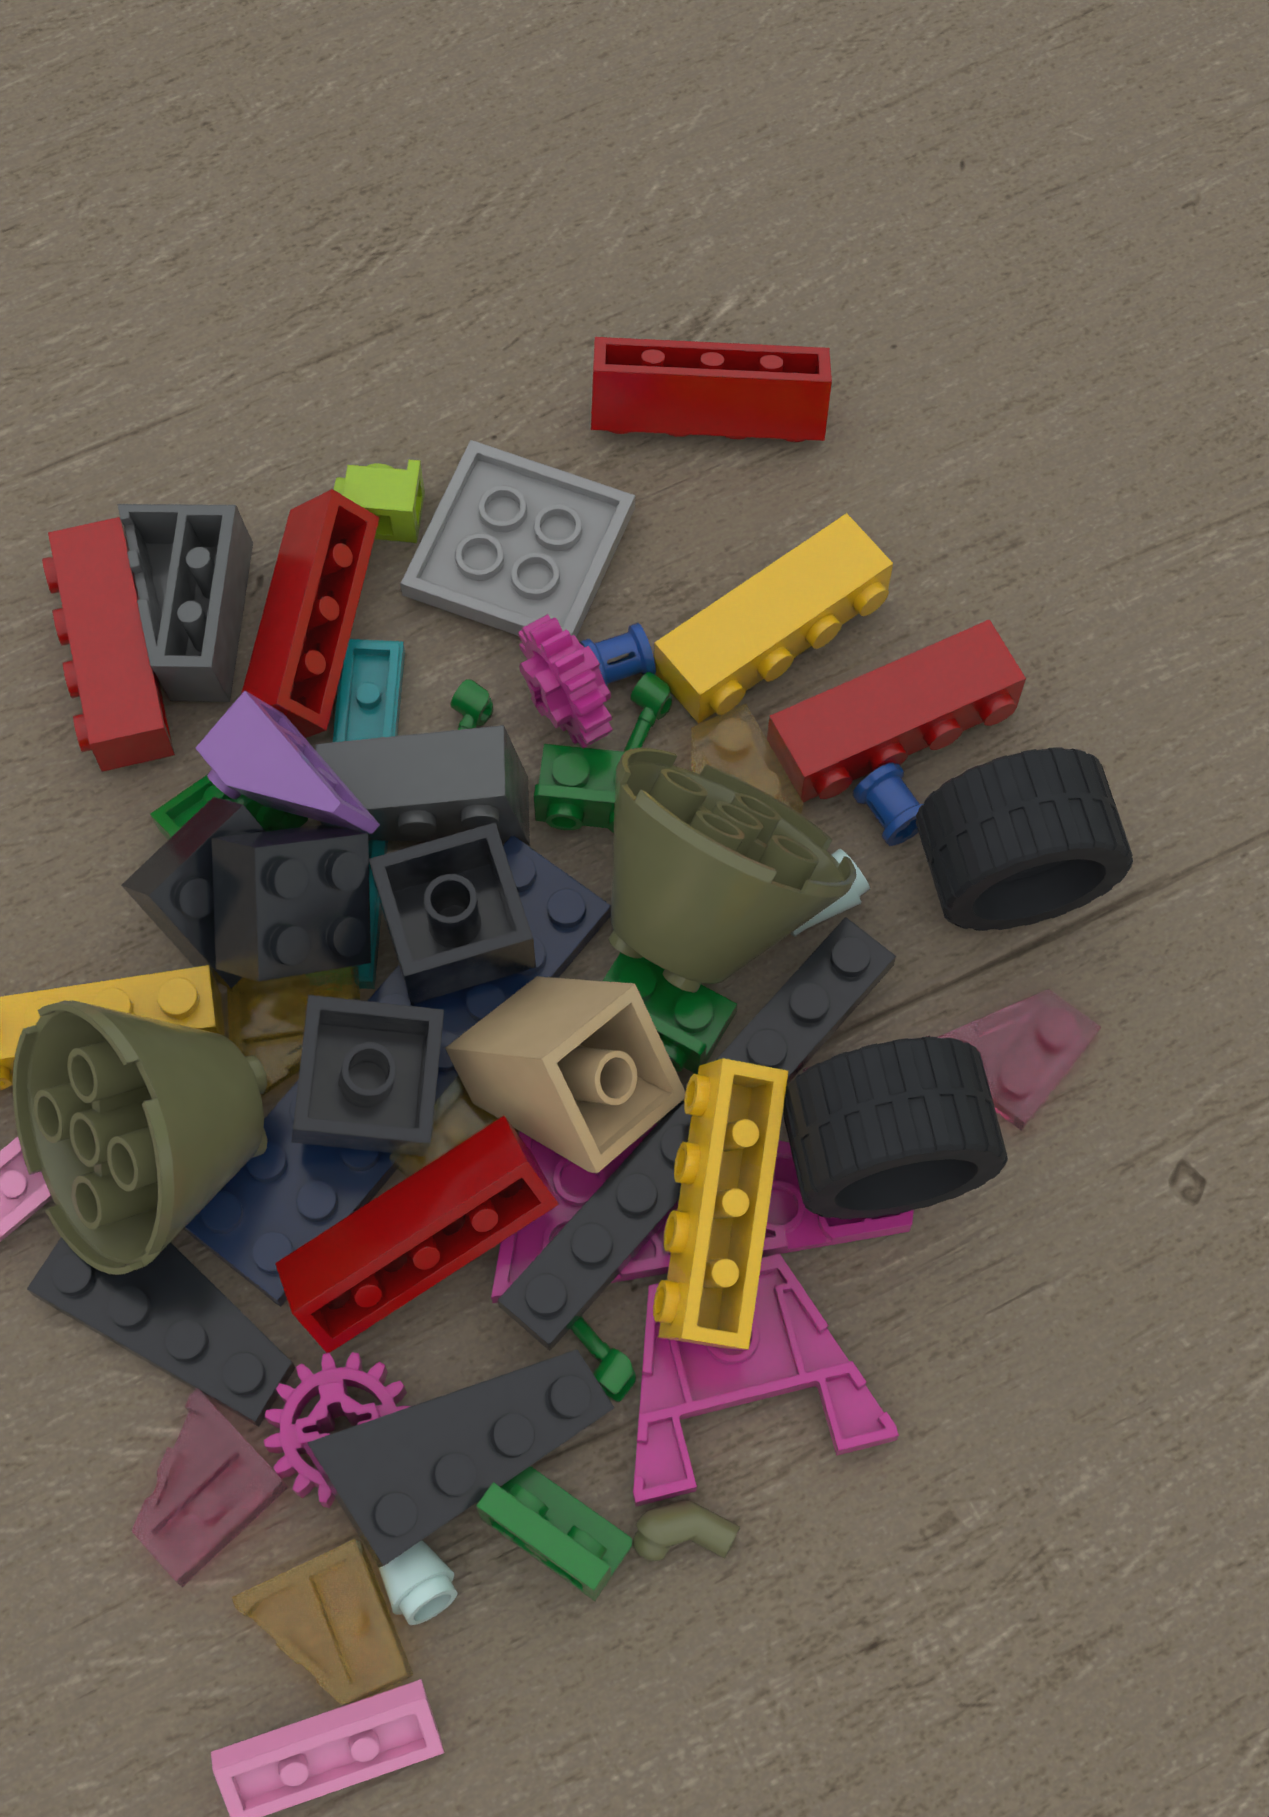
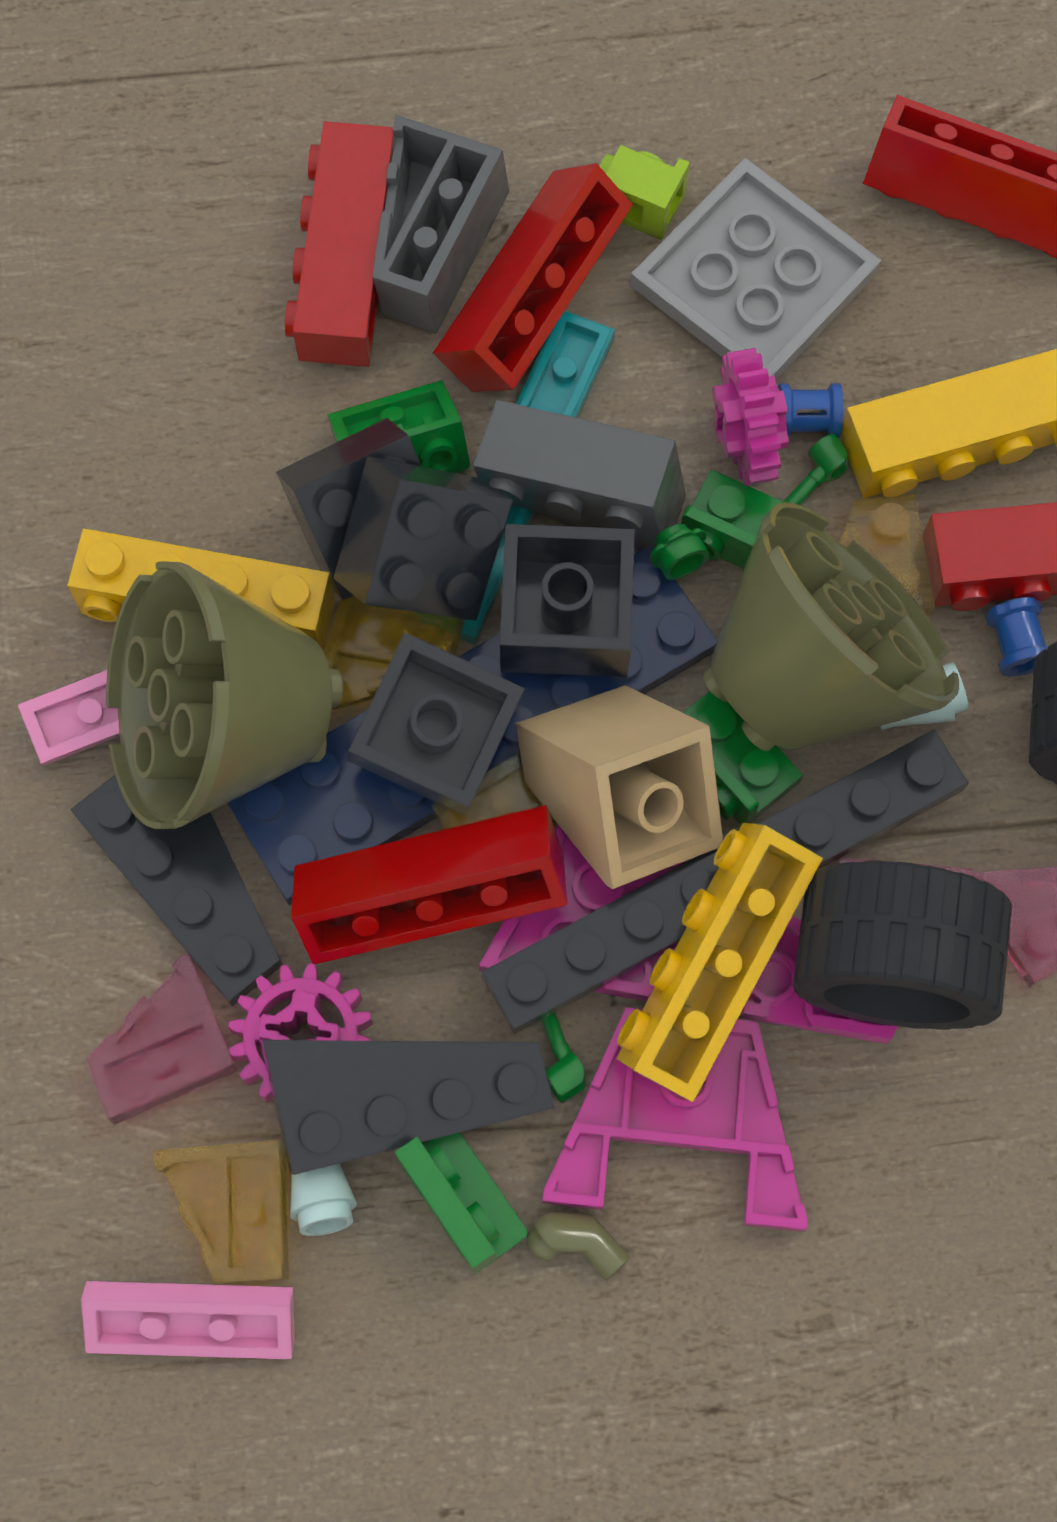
camera: 20 degrees right, 5 degrees up
(268, 760) = (448, 400): medium lavender slope -> none
(472, 703) = (659, 410): green hand -> none
(543, 831) = (679, 551): none -> green plate

